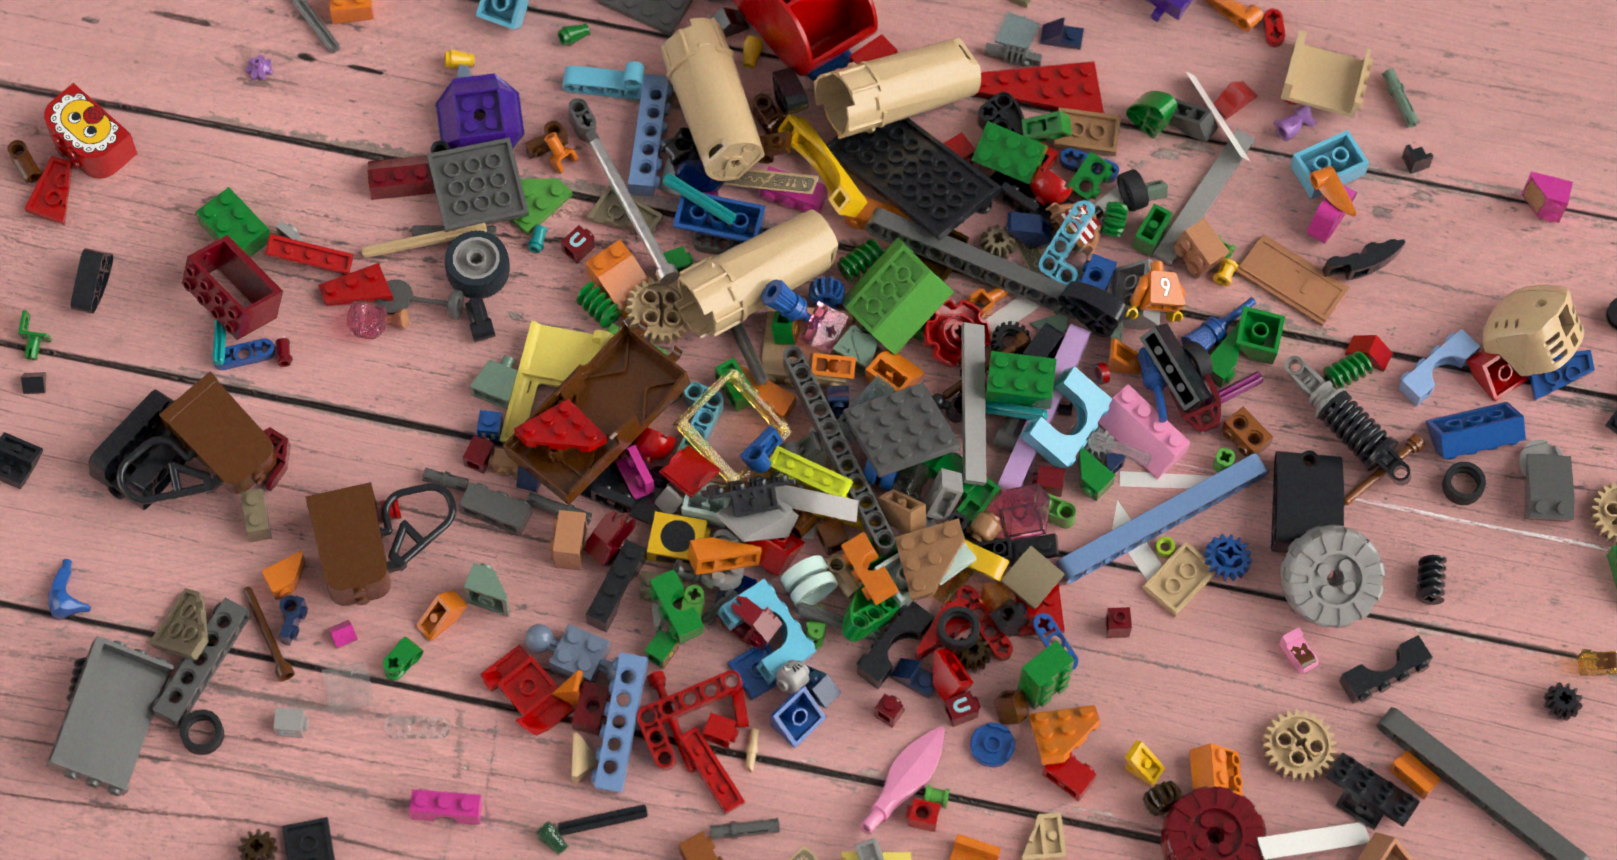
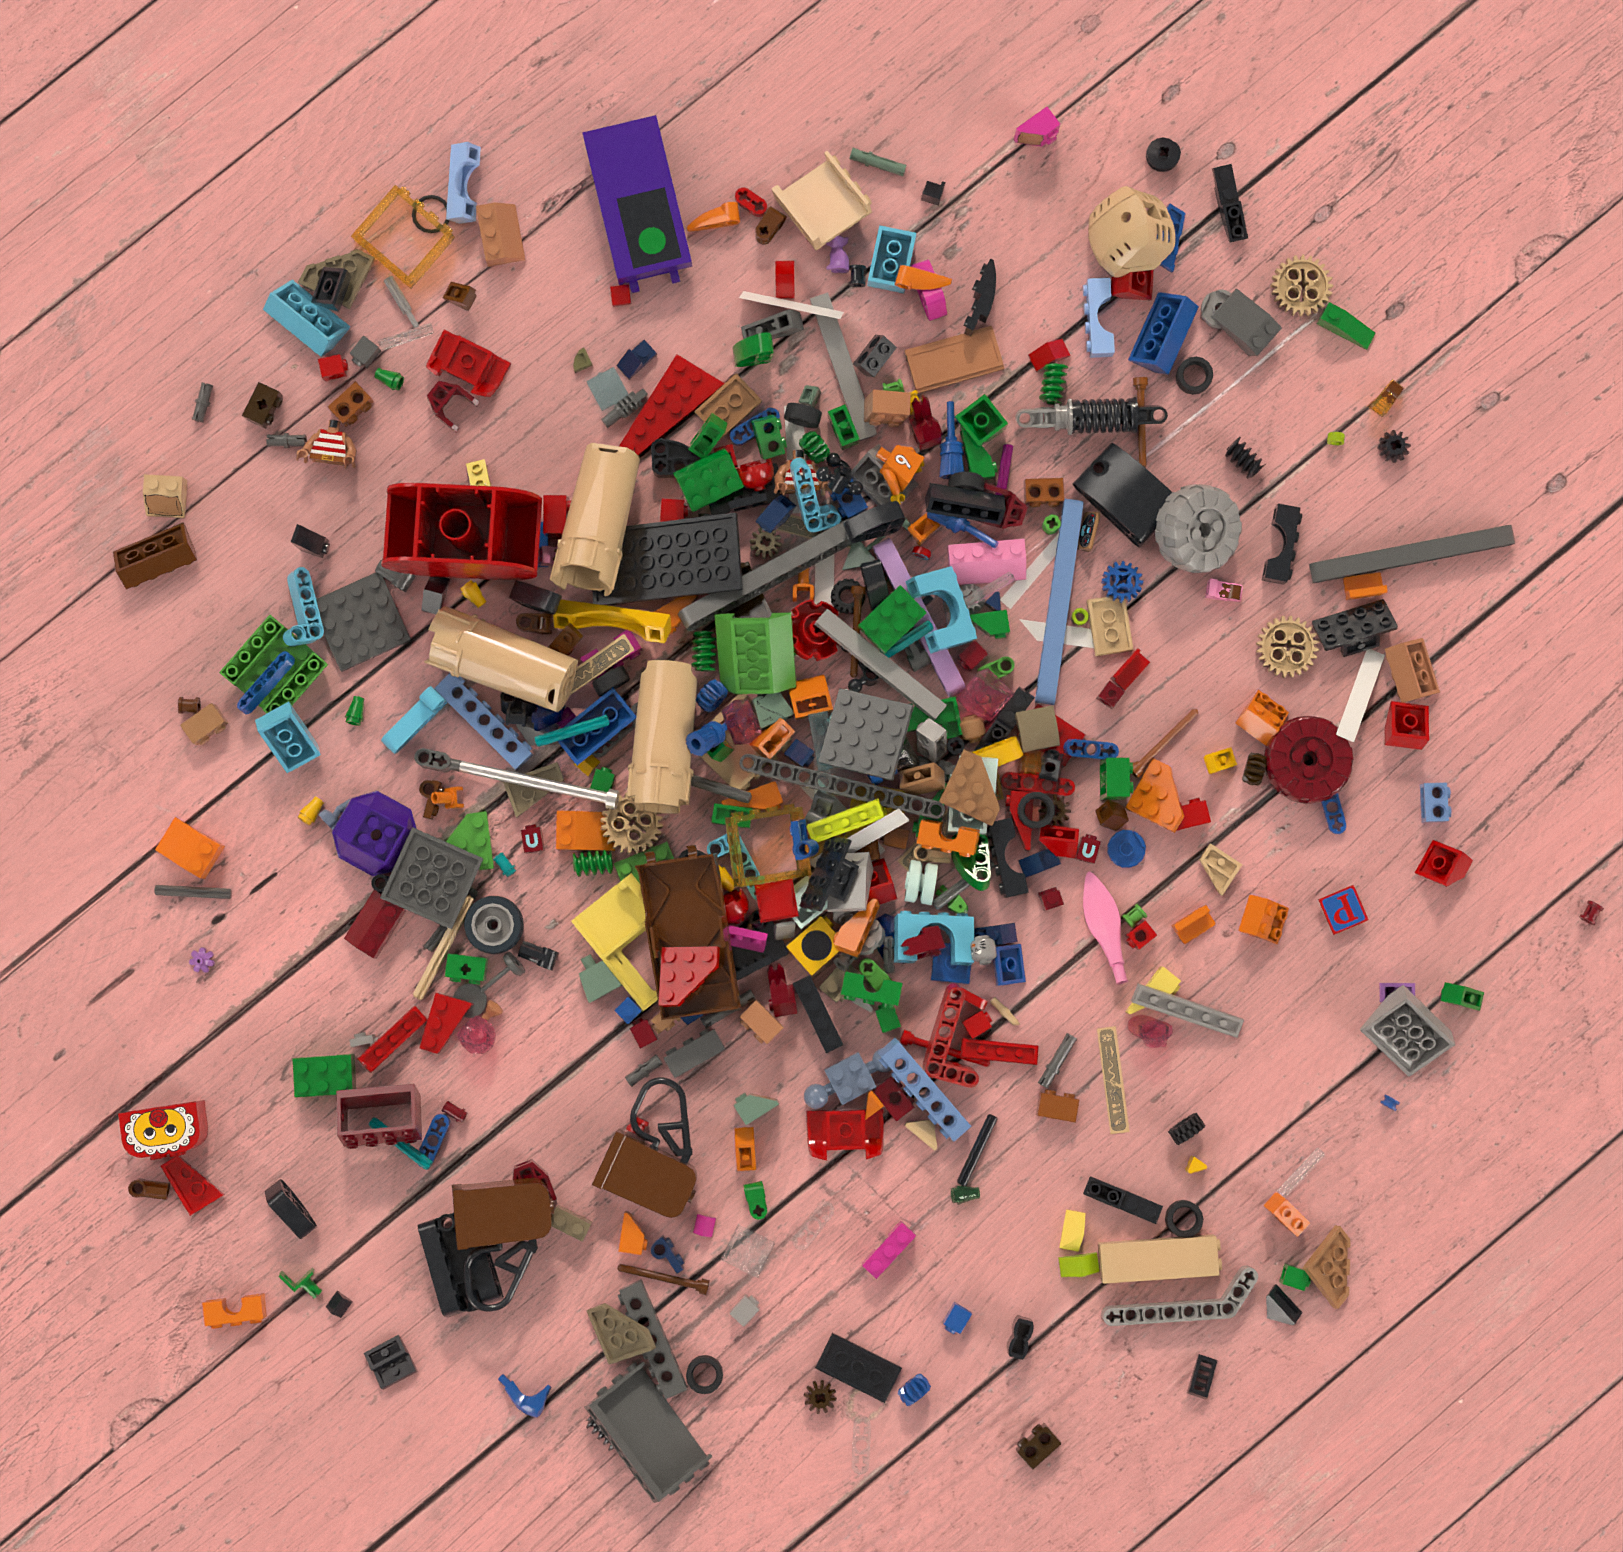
camera: 55 degrees left, 20 degrees up
(429, 277) = (456, 962): none -> green brick
(671, 414) = (726, 879): none -> yellow cone
(682, 238) = (588, 765): none -> yellow slope
(776, 203) = (611, 679): none -> black tyre
(1074, 697) = (1138, 767): none -> dark orange piece
(1105, 251) = (841, 476): none -> black piece
(1156, 623) = (1130, 670): none -> red panel
(1212, 293) = (924, 426): none -> dark red piece
(1236, 210) = (874, 355): none -> black brick
(1247, 498) = (1088, 531): none -> slope
(1269, 53) = (770, 223): none -> reddish brown piece
(1286, 153) = (857, 275): none -> black bush
(1522, 646) = (1335, 438): none -> lime axle

